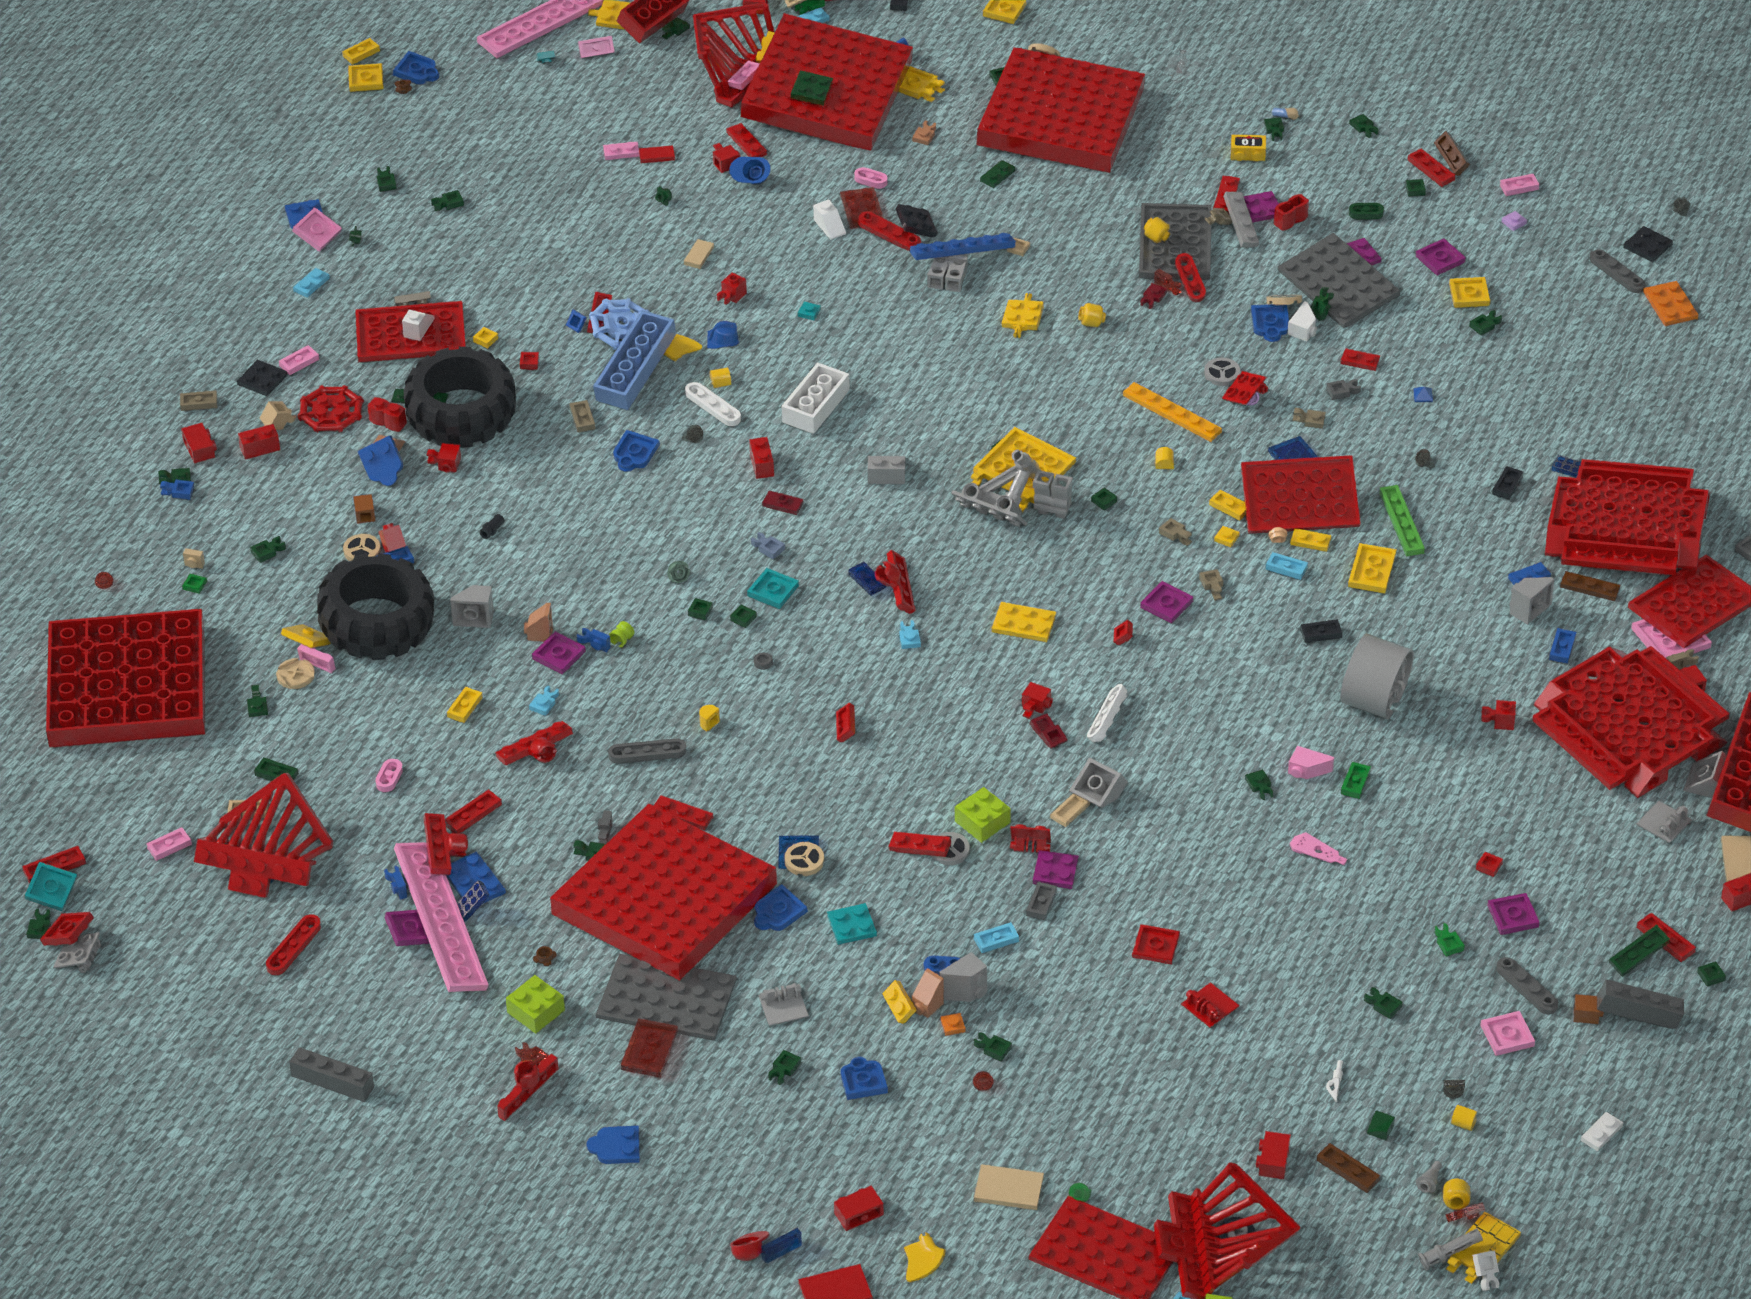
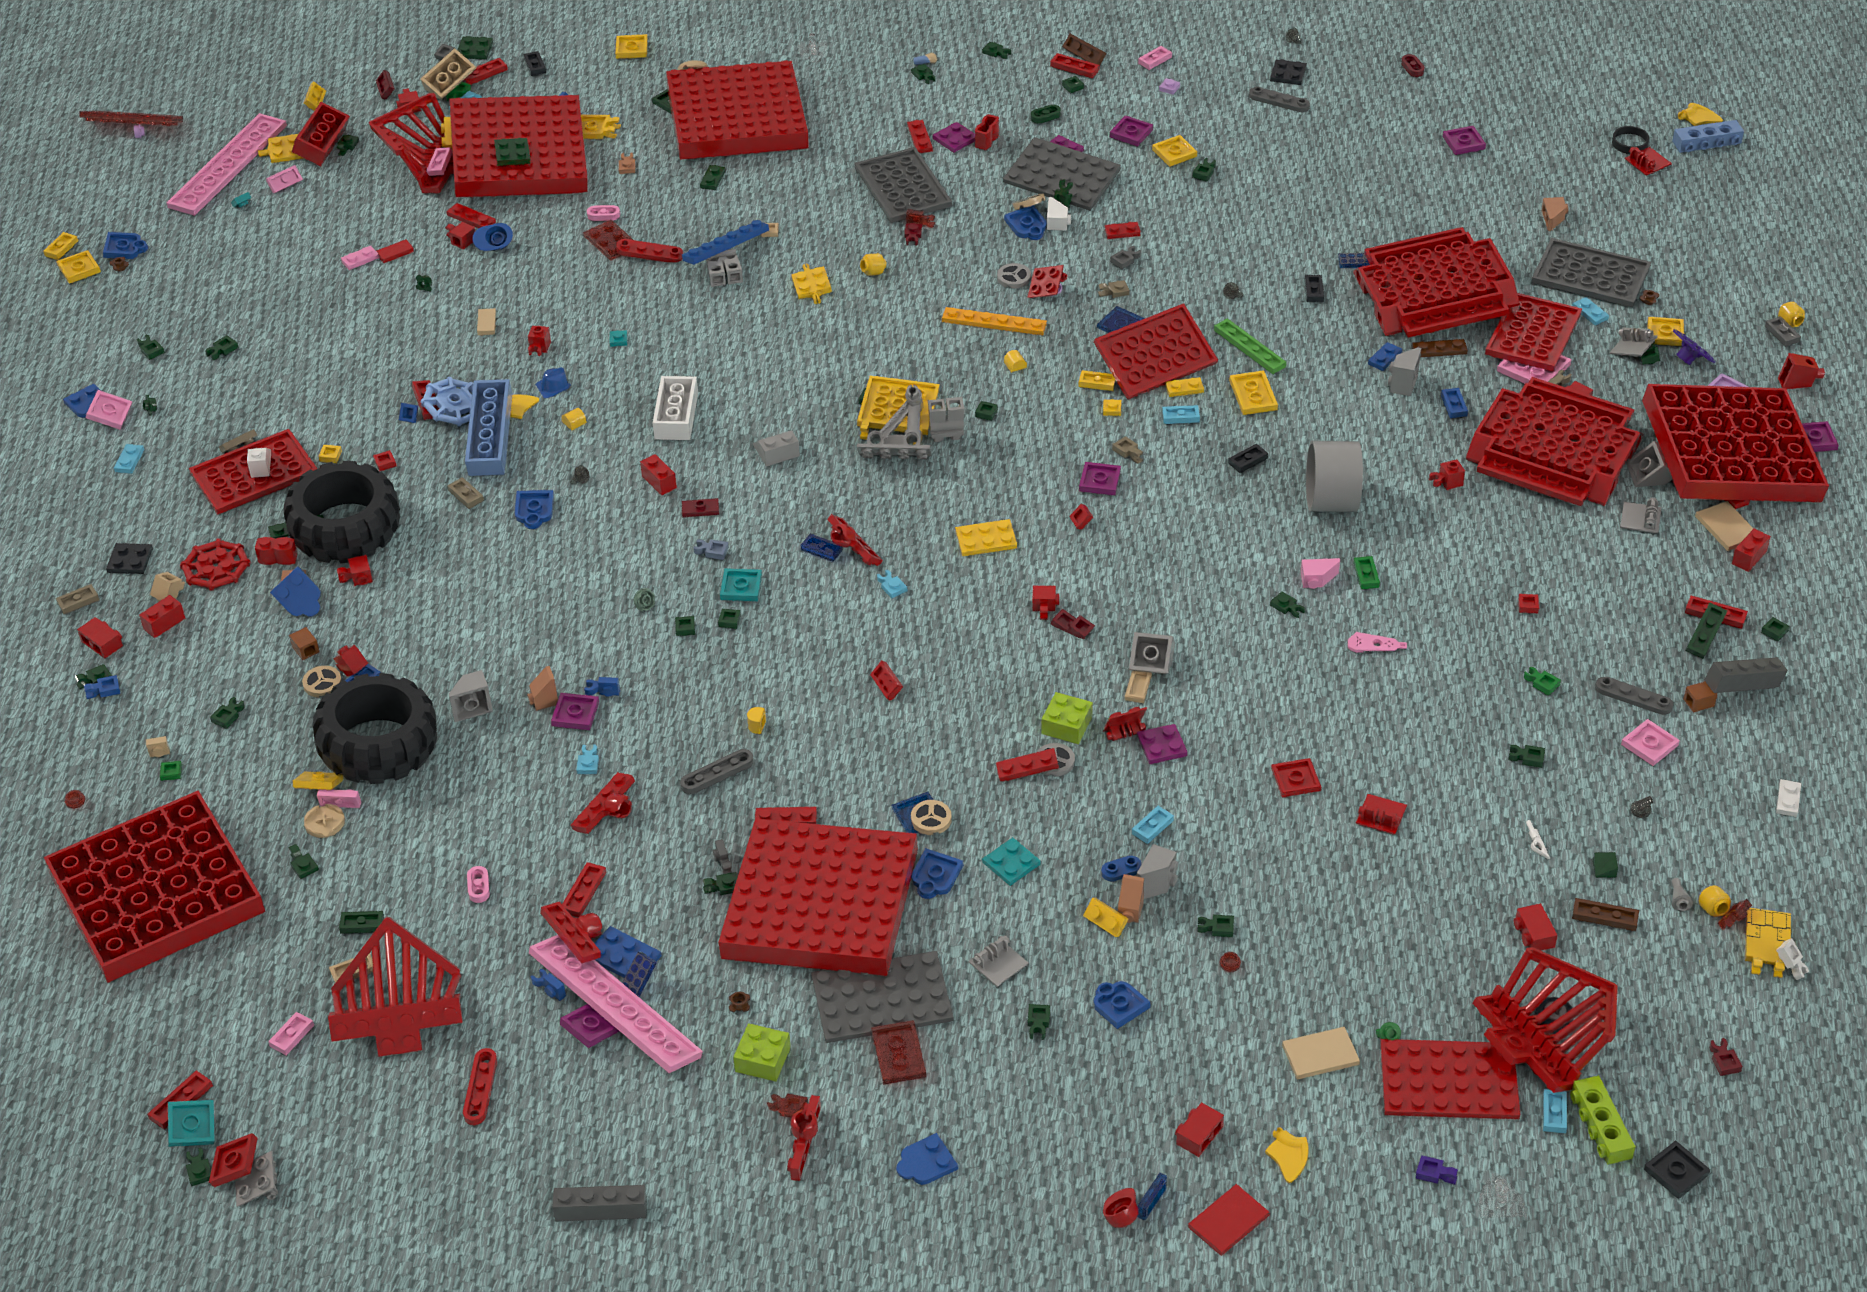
camera: 25 degrees left, 0 degrees up
(299, 360) = (158, 530): bright pink plate -> none
(464, 704) = (513, 791): yellow plate -> none
(490, 528) = (438, 620): black pin -> none
(622, 633) = (625, 672): lime wheel -> none
(713, 404) = (582, 443): white plate -> none
(763, 661) = (772, 652): dark grey tile -> none
(828, 219) = (588, 257): white slope -> none
(916, 220) = (668, 234): black plate -> none
(952, 1024) = (1166, 919): orange plate -> none
(1041, 901) = (1170, 776): dark grey plate -> none
(1106, 714) = (1115, 590): white plate -> none
(1157, 230) = (886, 178): yellow head -> none
(1173, 529) = (1066, 416): dark tan plate -> none
(1190, 271) = (936, 202): red plate -> none
(1219, 216) = (928, 154): dark tan plate -> none
(1241, 219) = (947, 150): light grey plate -> none
(1248, 147) = (914, 94): yellow brick -> none
(1278, 535) = (1156, 391): light nougat plate -> none
(1423, 394) = (1193, 241): blue slope -> none
(1442, 1252) = (1742, 959): light grey pin -> none
(1464, 1117) = (1670, 830): yellow brick -> none
(1513, 913) = (1579, 638): magenta plate -> none
(1670, 303) = (1339, 110): orange plate -> none

